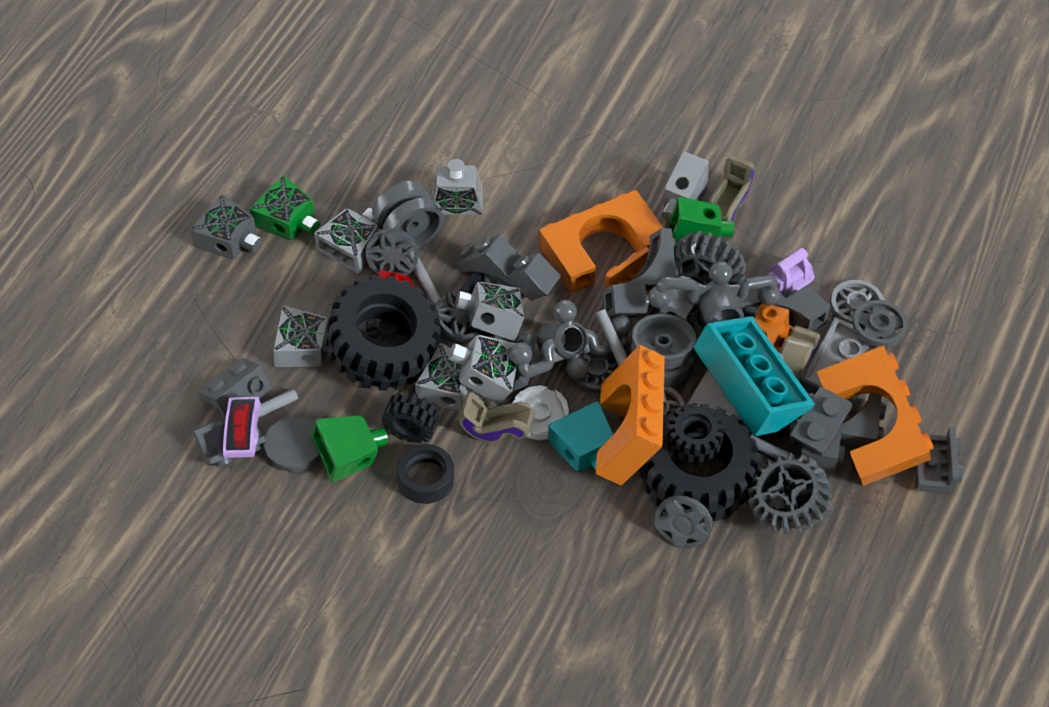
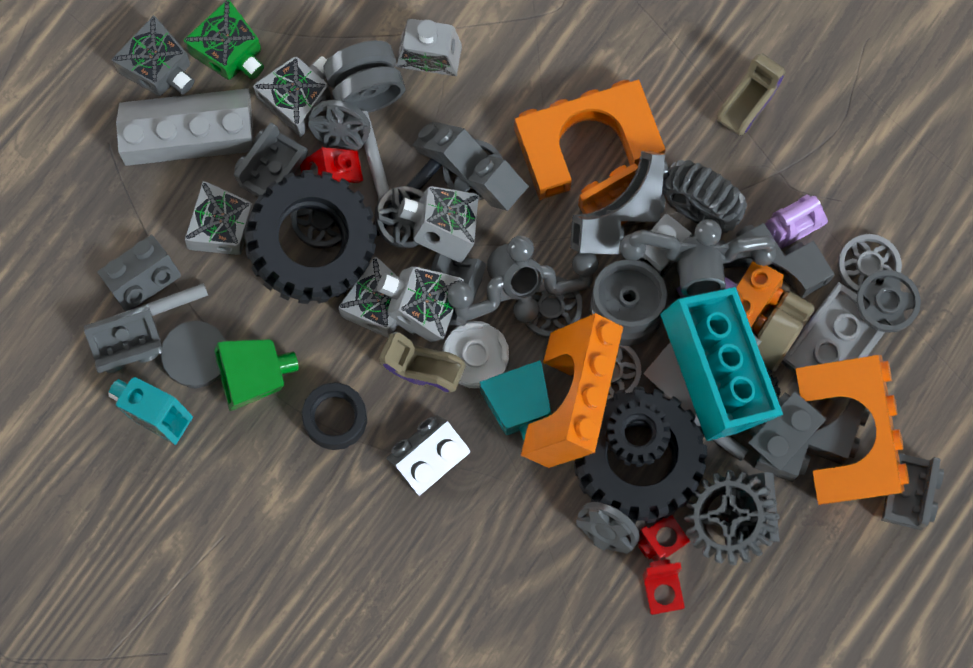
camera: 10 degrees right, 20 degrees up
(240, 427) = (134, 336): slope -> none
(261, 277) = (185, 127): none -> light grey slope
(263, 485) = (151, 408): none -> teal torso
(330, 285) = (268, 160): none -> dark grey bracket
(410, 417) = (327, 348): black tyre -> none
(513, 491) = (428, 453): none -> bracket
(611, 336) = (573, 282): light grey bar -> none
(687, 181) = (704, 73): light grey torso -> none
(697, 216) = (701, 138): green torso -> none
(727, 534) = (648, 540): none -> red bracket
(738, 556) = (663, 573): none -> red bracket

